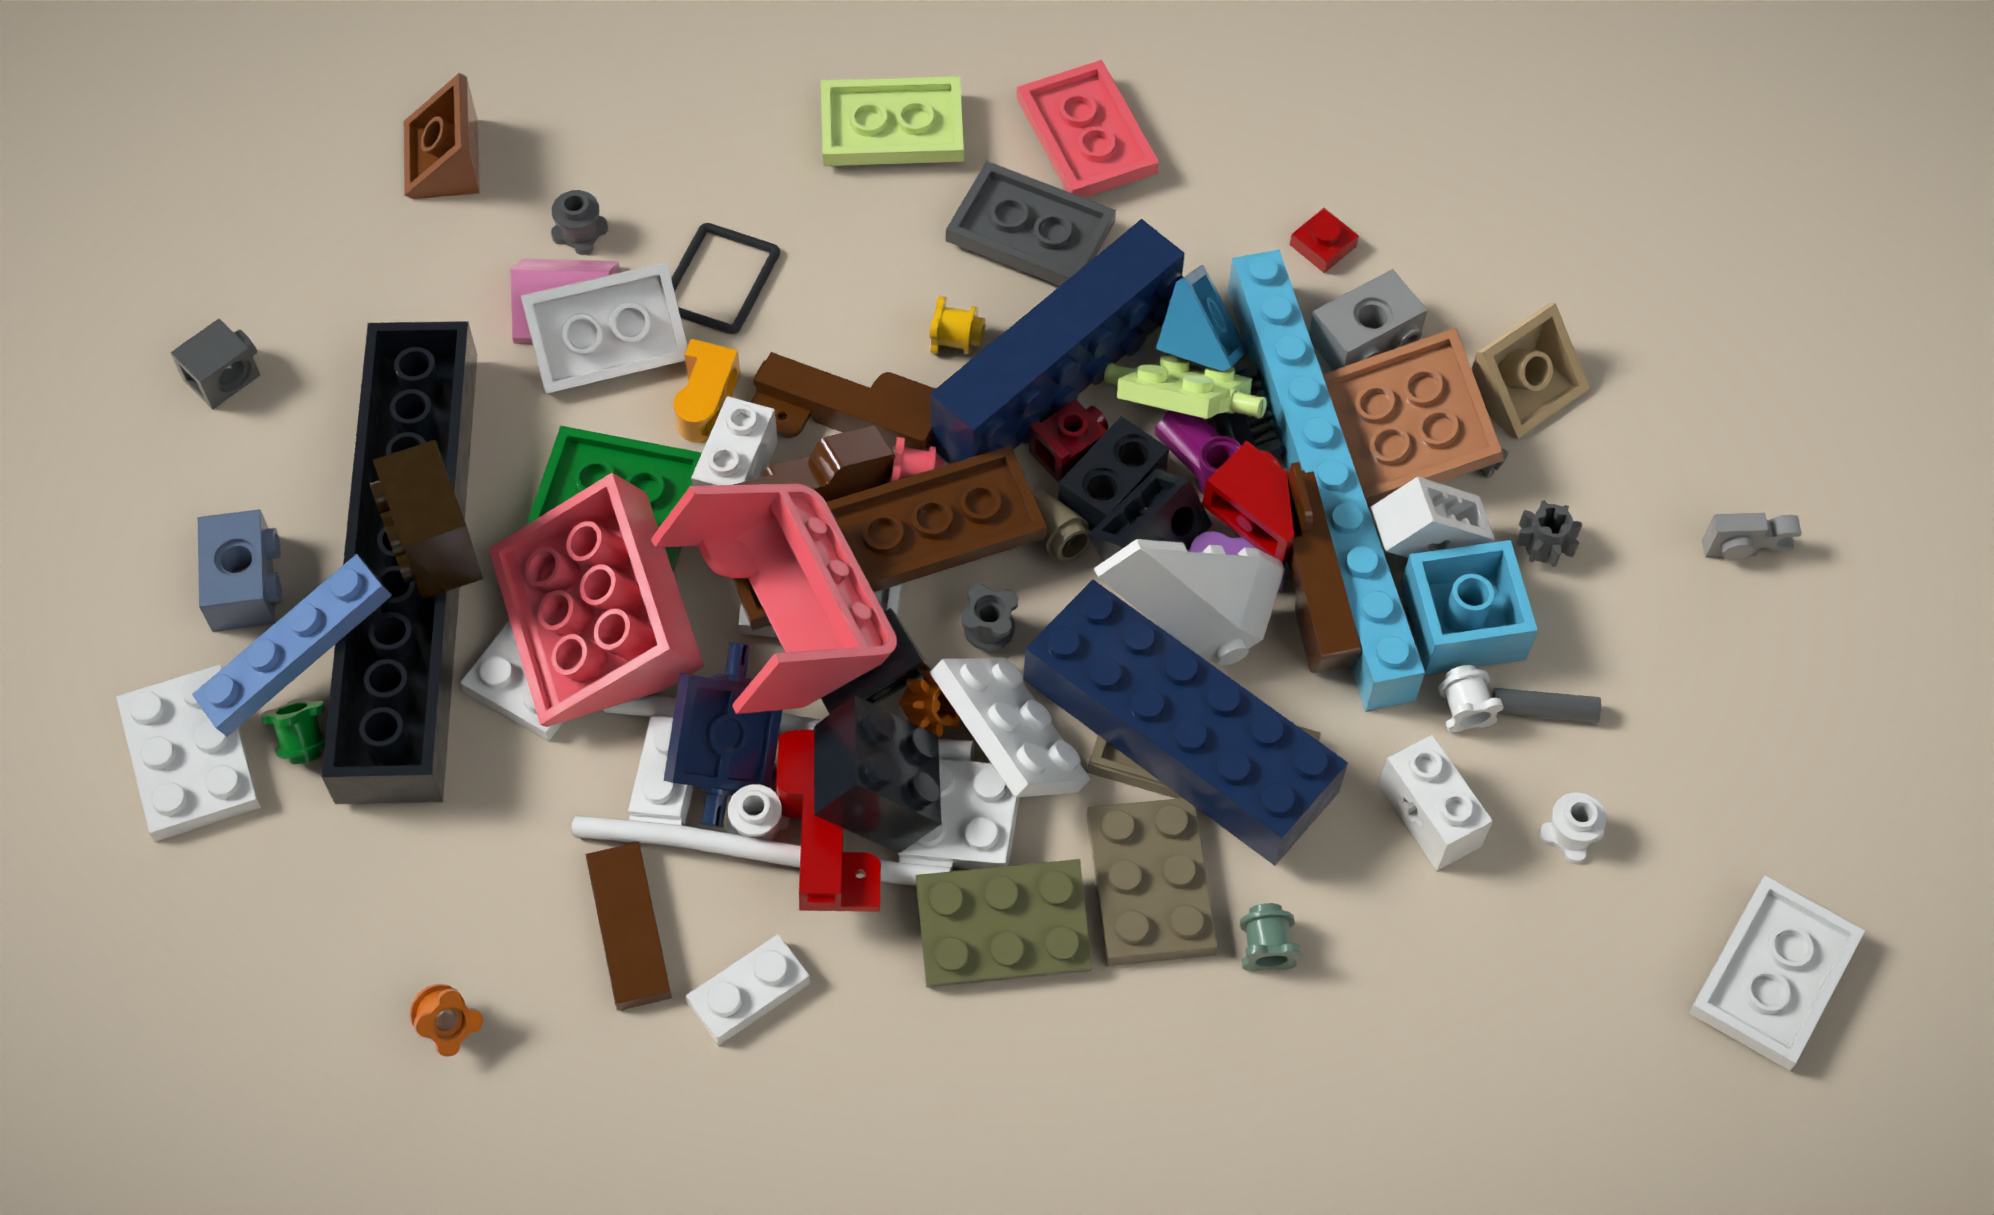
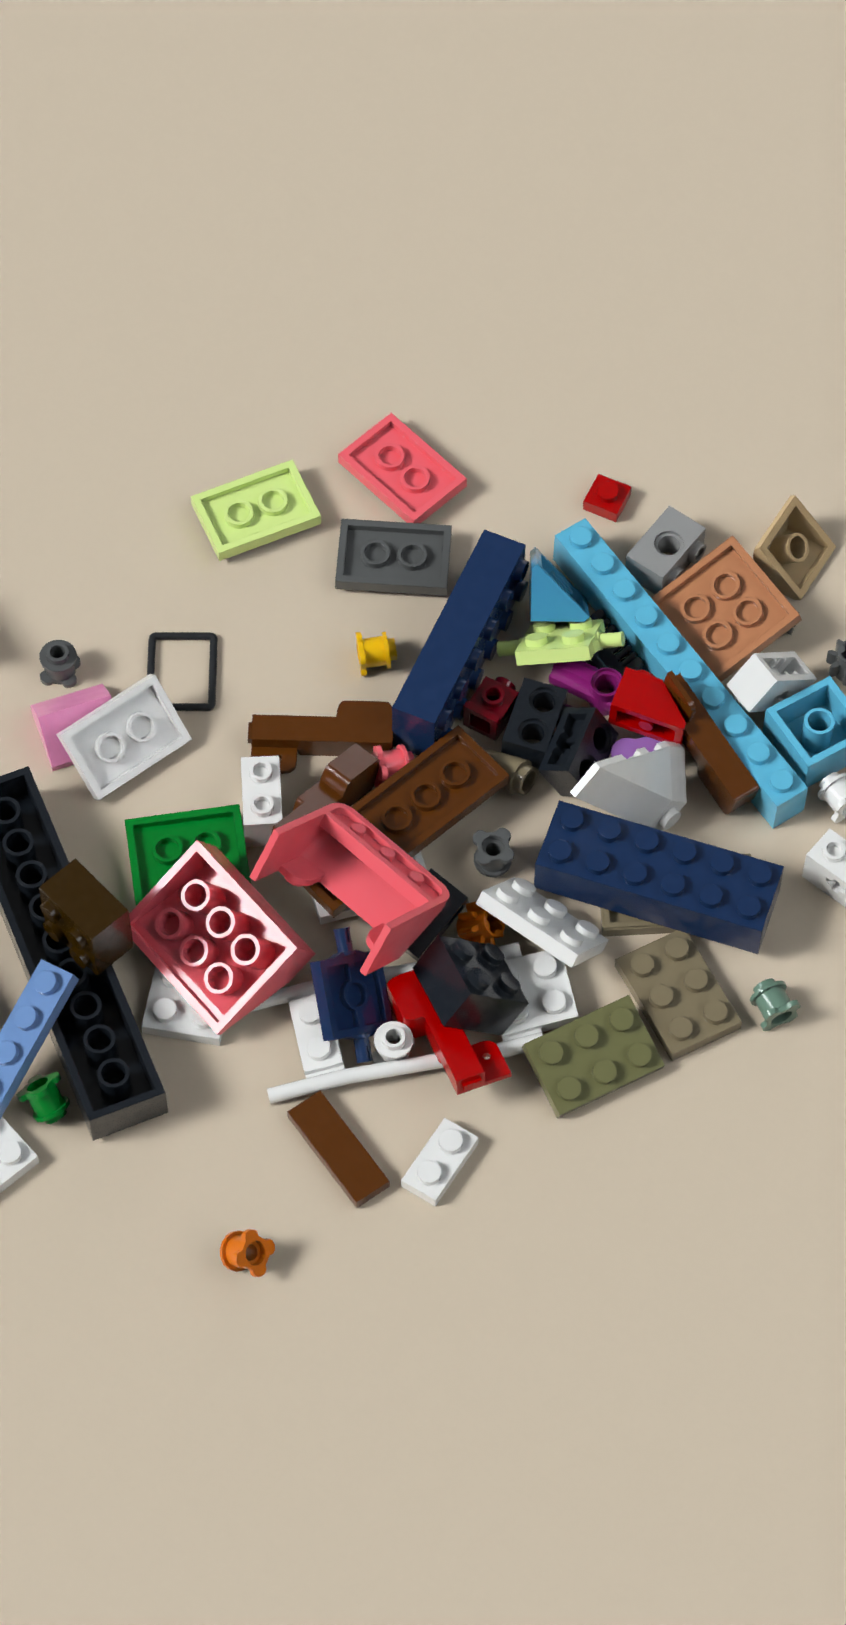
camera: 20 degrees left, 0 degrees up
(712, 377) = (217, 768): light orange leg -> none

